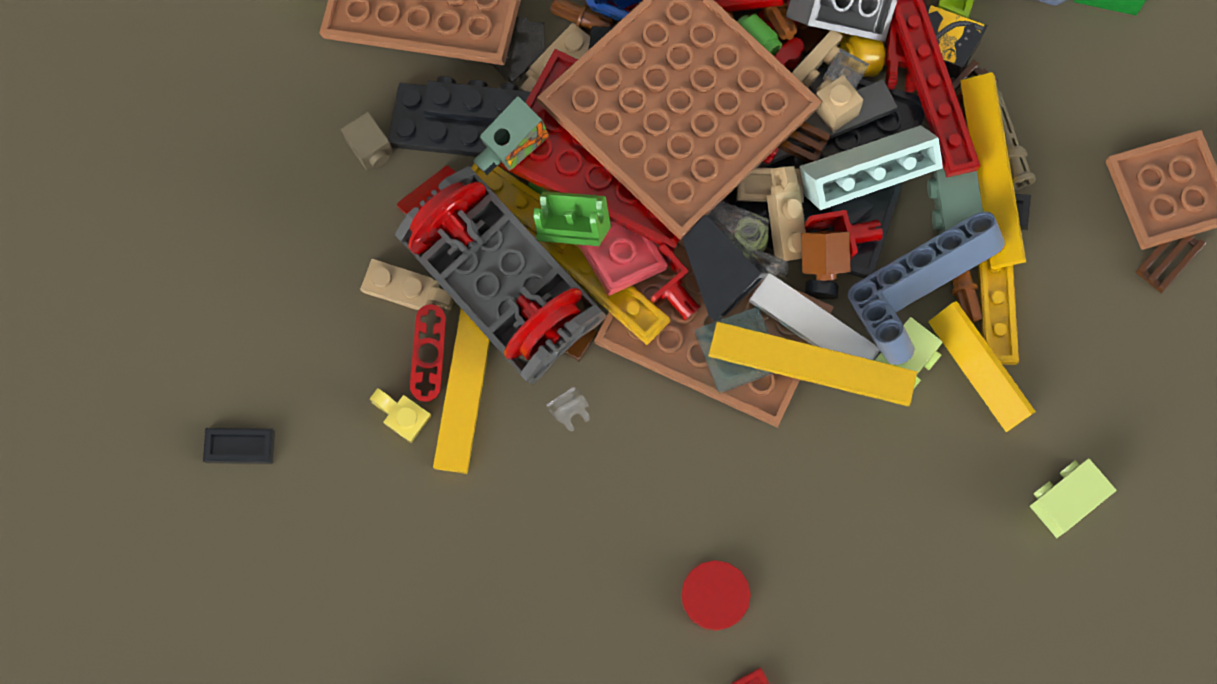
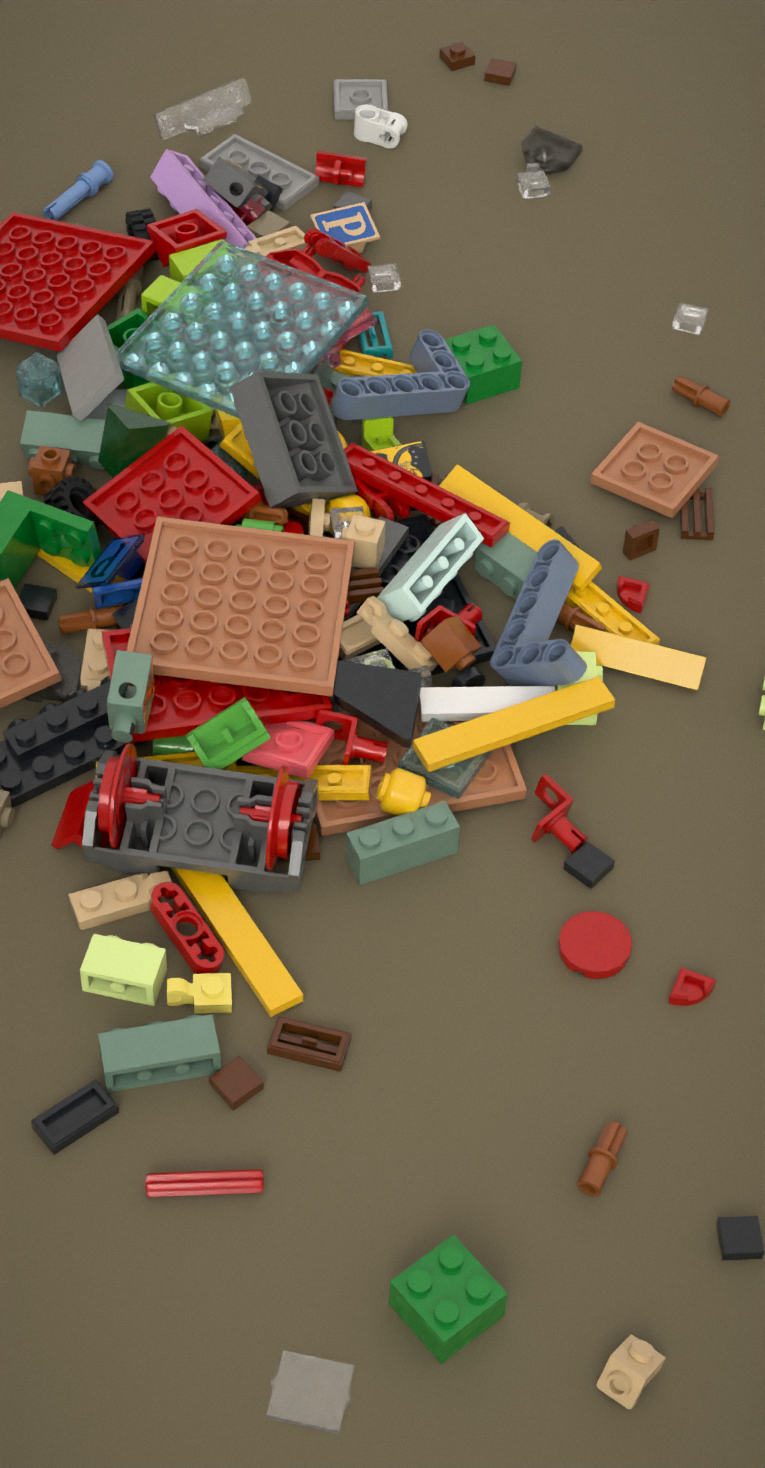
camera: 45 degrees left, 25 degrees down
(280, 568) = (204, 1182): none -> axle
(328, 441) = (159, 1052): none -> sand green brick
(358, 353) = (123, 969): none -> yellowish green brick
(364, 505) = (236, 1083): none -> reddish brown tile
(457, 537) = (308, 1049): none -> reddish brown tile
(567, 405) = (344, 888): clear tile -> none
(642, 399) = (402, 842): none -> sand green brick
(671, 362) = (402, 792): none -> yellow head
(773, 524) = (589, 864): none -> black tile
(778, 472) = (556, 820): none -> red bracket
(1040, 298) = (632, 593): none -> red tile
(1091, 253) = (641, 540): none -> reddish brown plate

